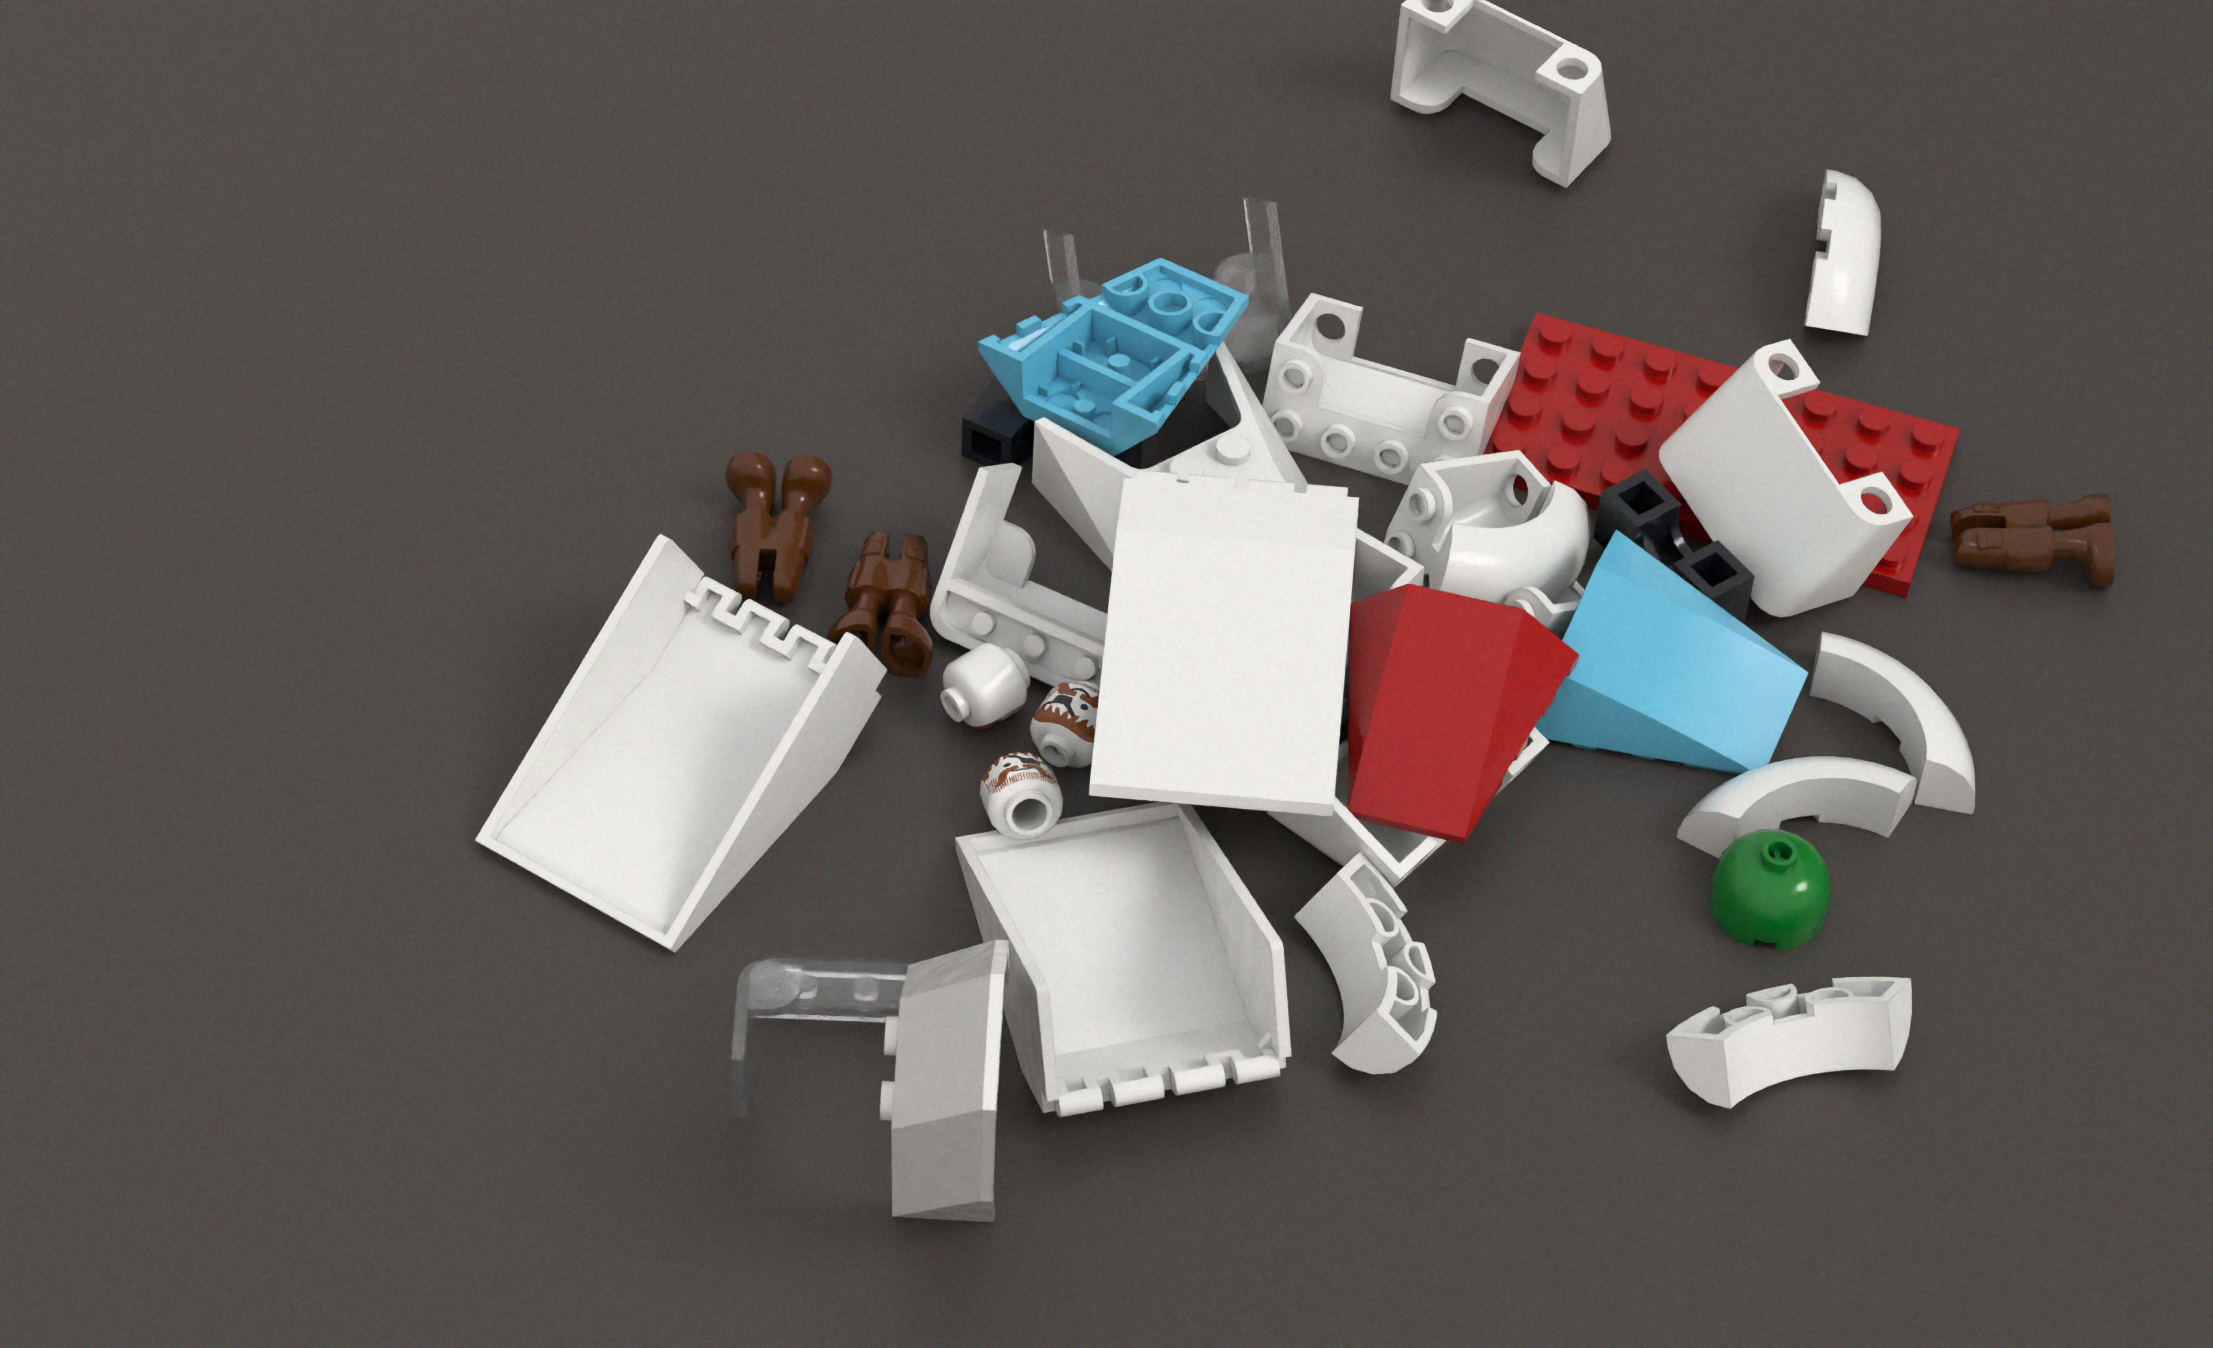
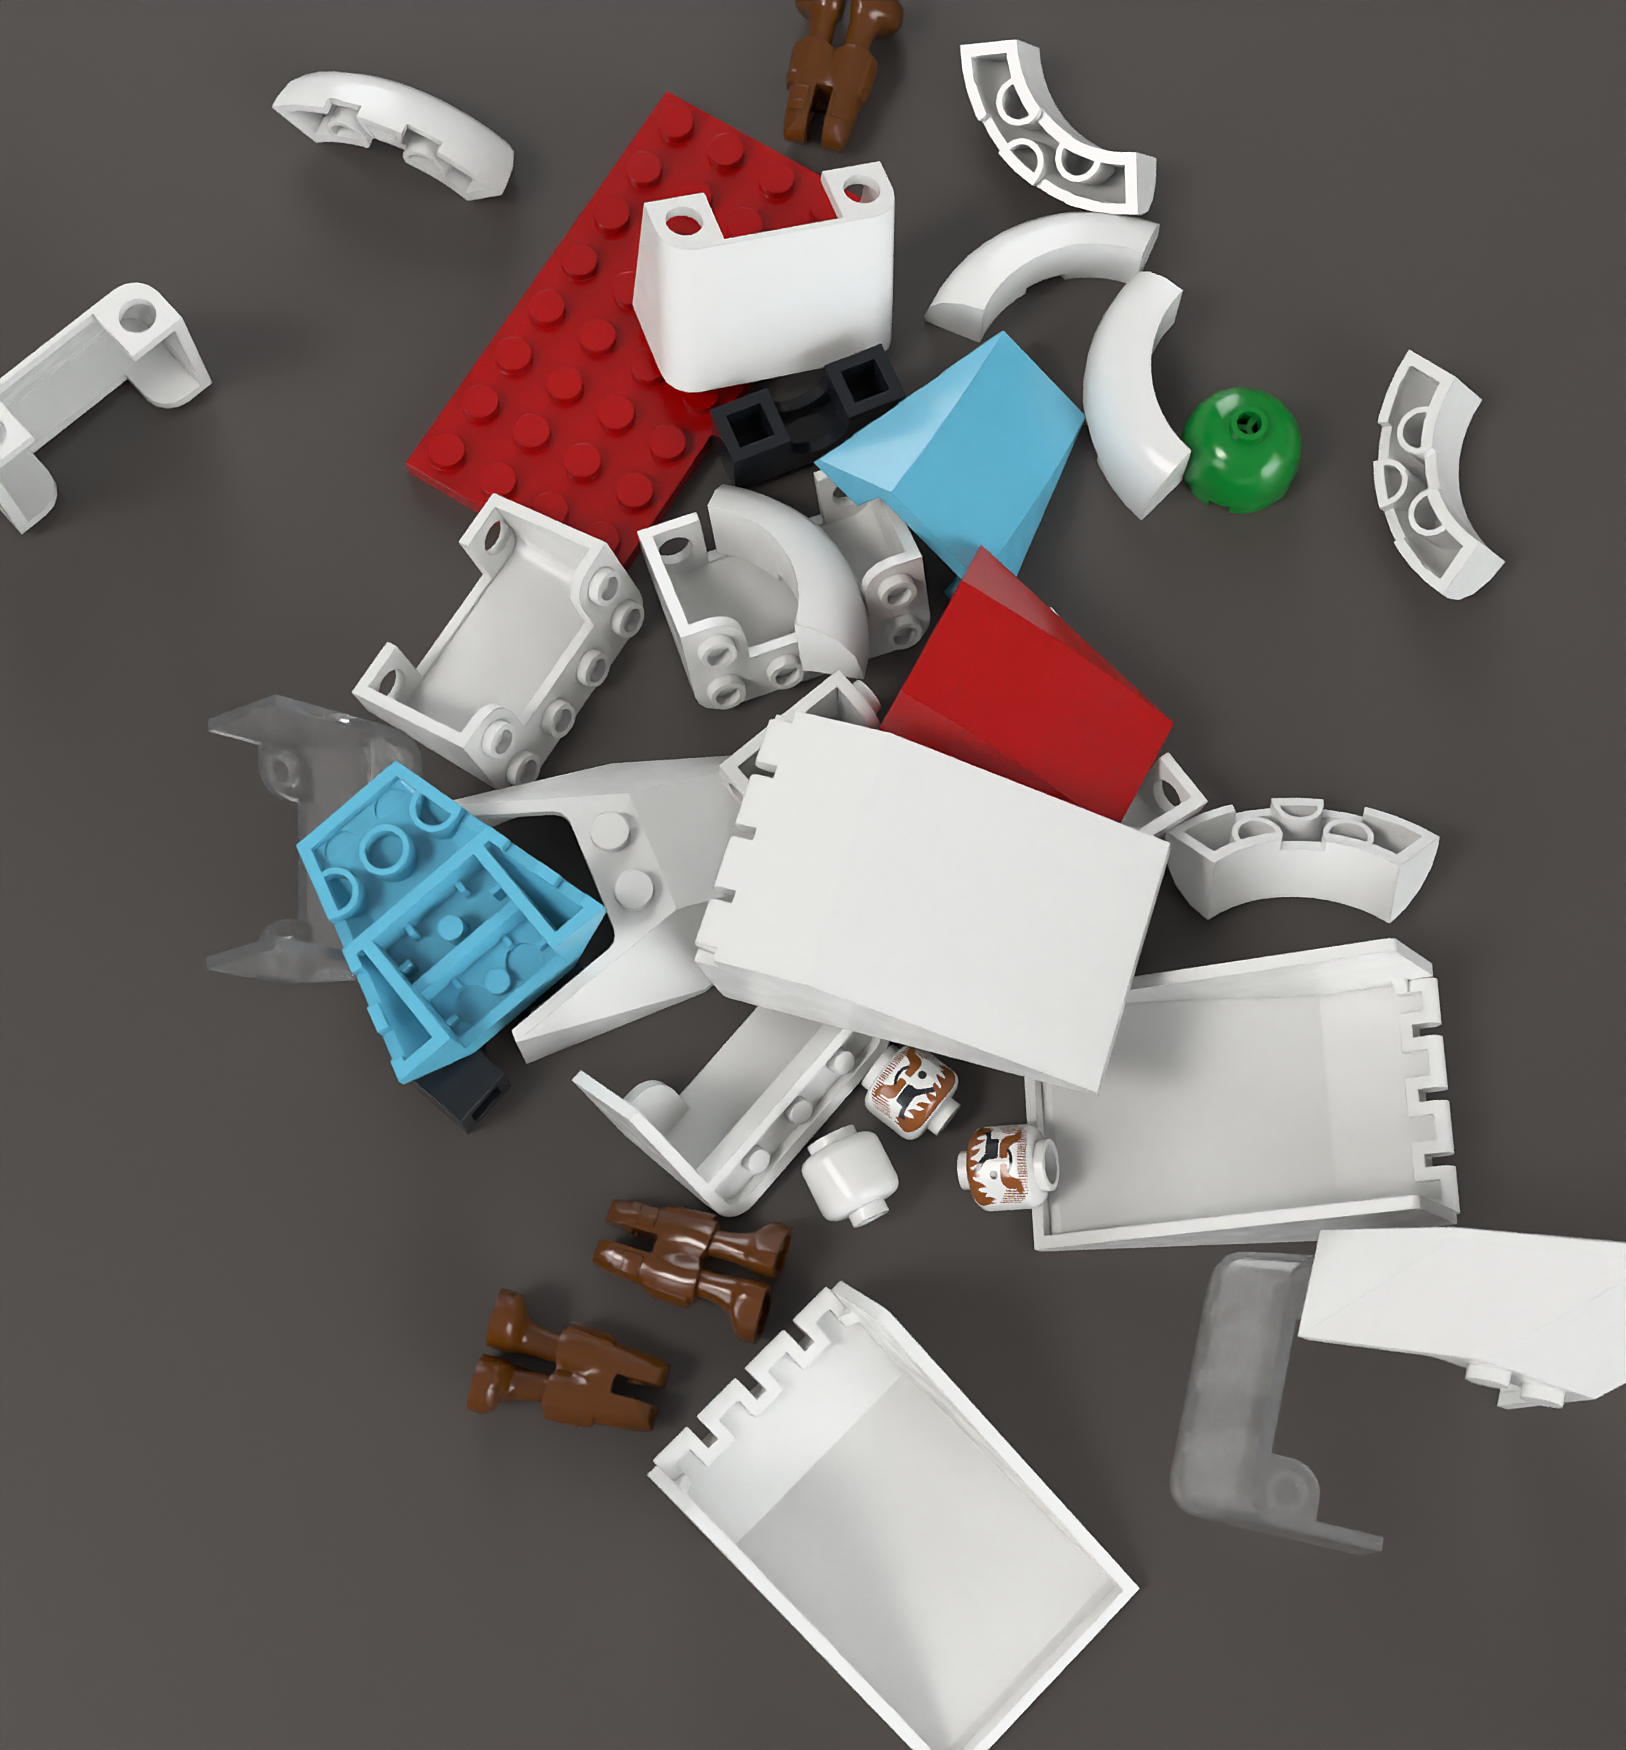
camera: 75 degrees left, 25 degrees up
(2032, 697) = (1038, 142): none -> white brick

